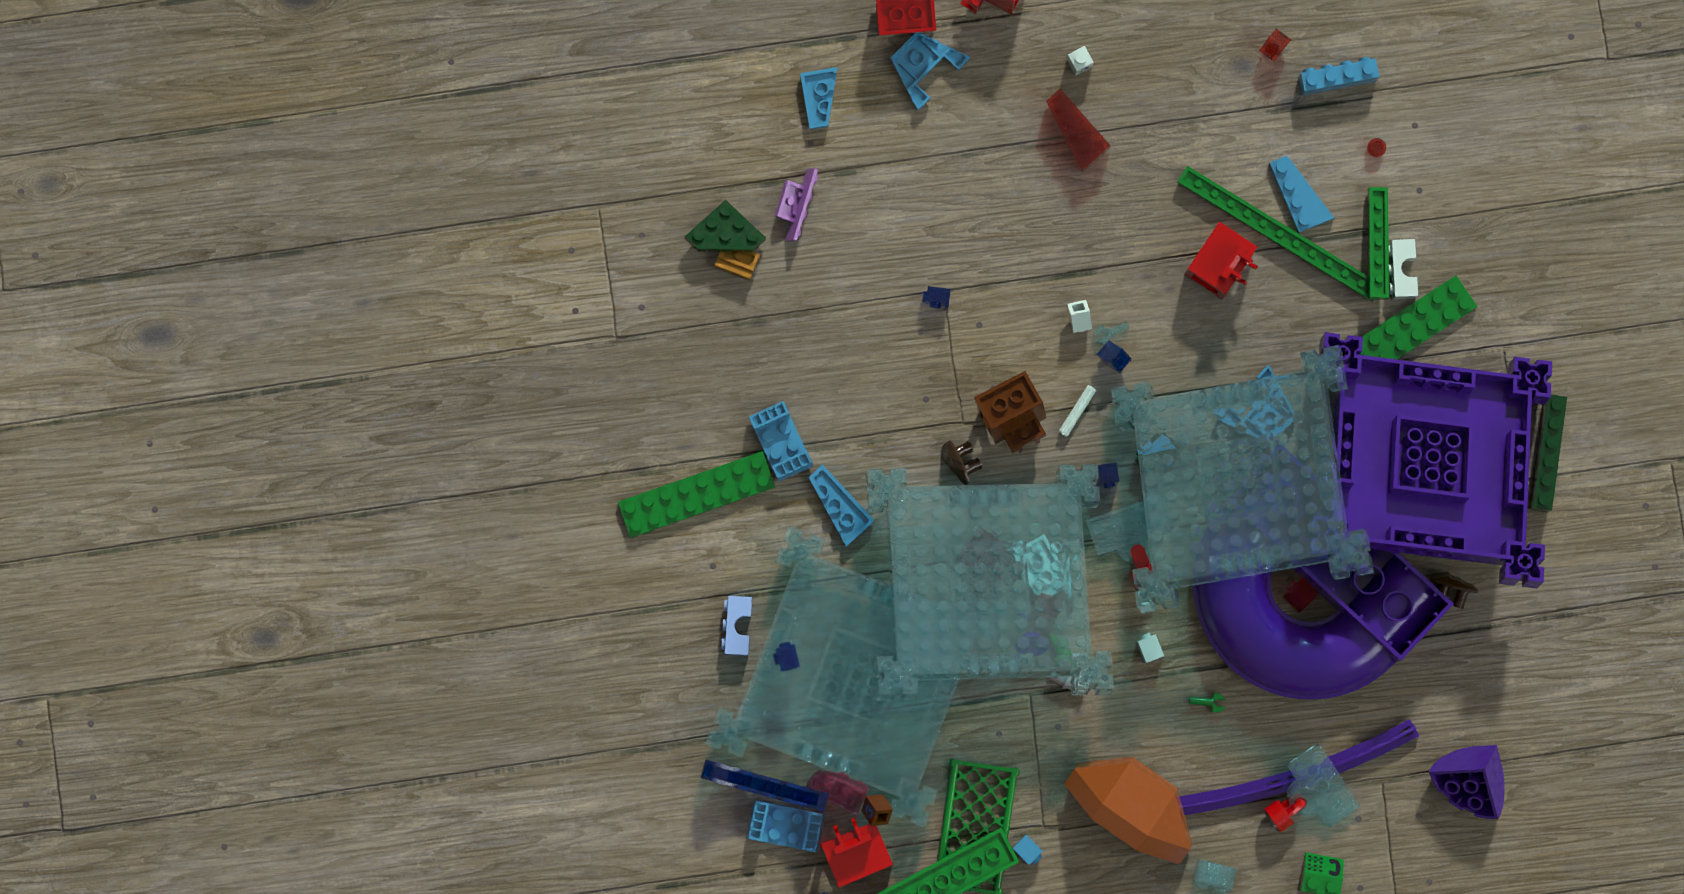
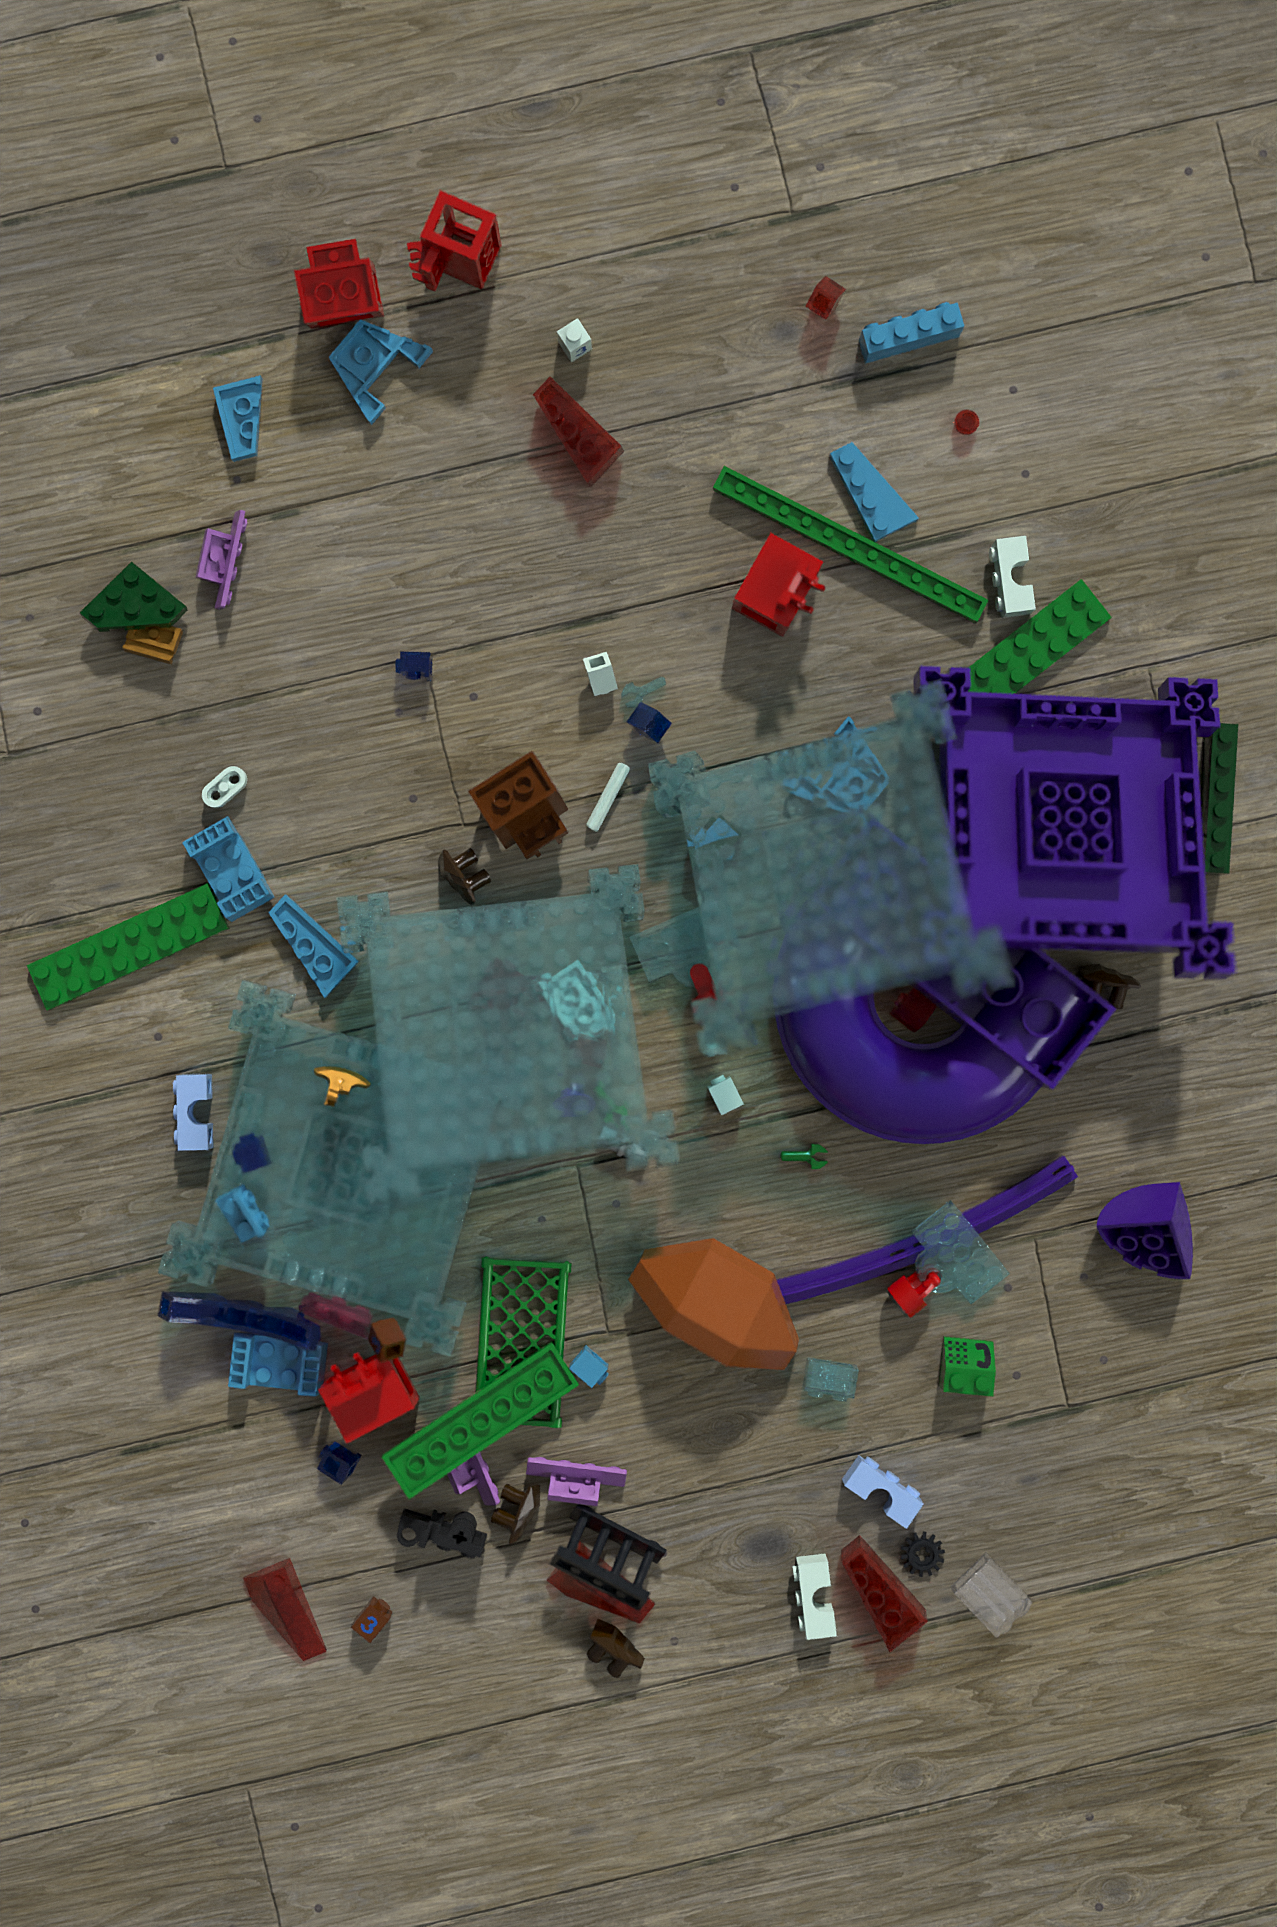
camera: 10 degrees left, 5 degrees up
(774, 703) = (243, 1213): none -> dark azure bracket
(782, 378) = (223, 785): none -> light aqua plate
(856, 610) = (340, 1082): none -> pearl gold piece
(1108, 475) = (653, 876): clear blue brick -> none
(1378, 243) = (978, 545): green plate -> none

